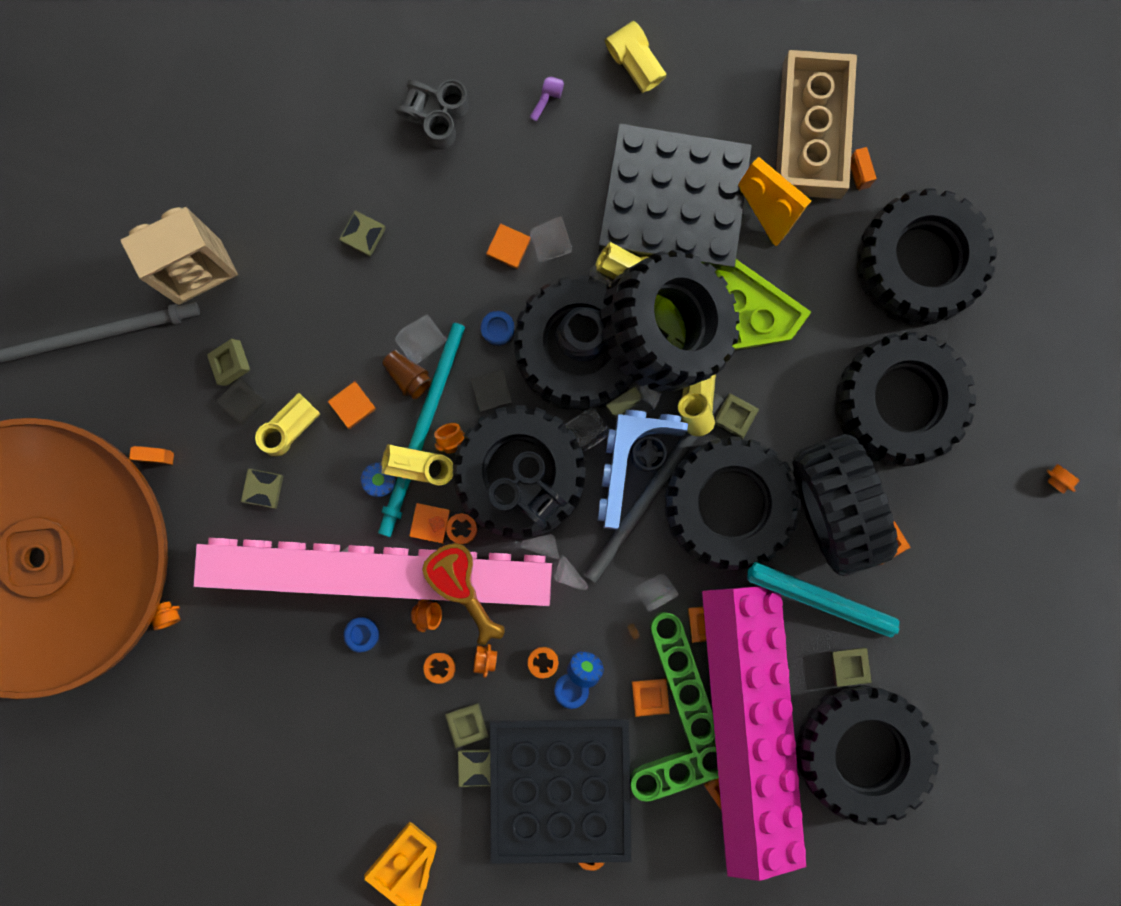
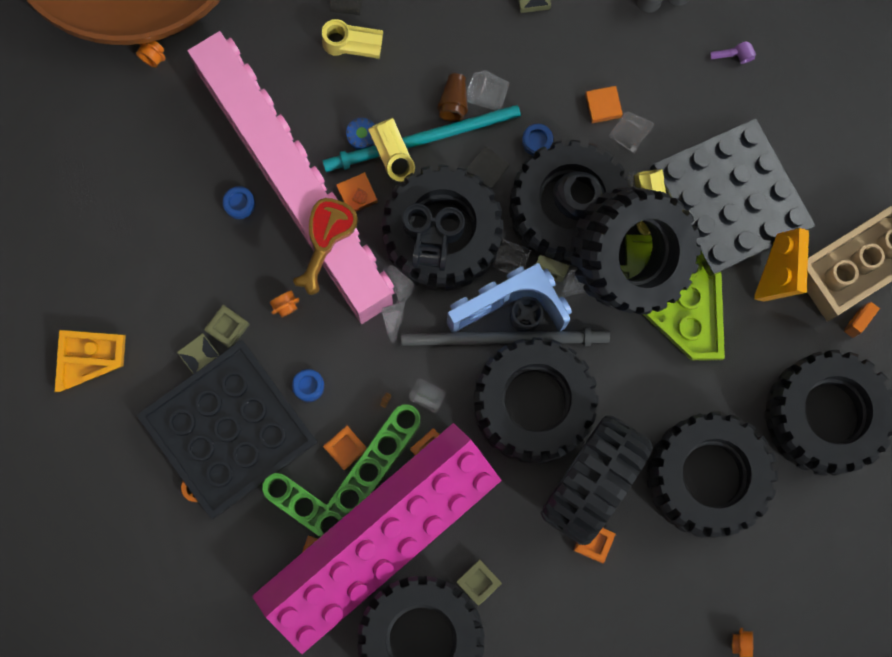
camera: 45 degrees right, 5 degrees down
(262, 488) = (294, 56): olive tile -> none
(352, 405) = (402, 76): orange tile -> none
(426, 615) = (287, 238): orange plate -> none
(438, 679) = (246, 279): orange bush -> none
(448, 437) = (429, 158): orange plate -> none
(462, 518) = (361, 222): orange bush -> none
(535, 670) = (324, 350): orange bush -> none
(585, 669) = (331, 382): blue tile -> none
(631, 49) = (817, 87): light yellow piece -> none
(695, 400) = (590, 321): light yellow piece -> none
(735, 416) = (604, 360): olive tile -> none
(823, 599) = (514, 521): teal axle -> none

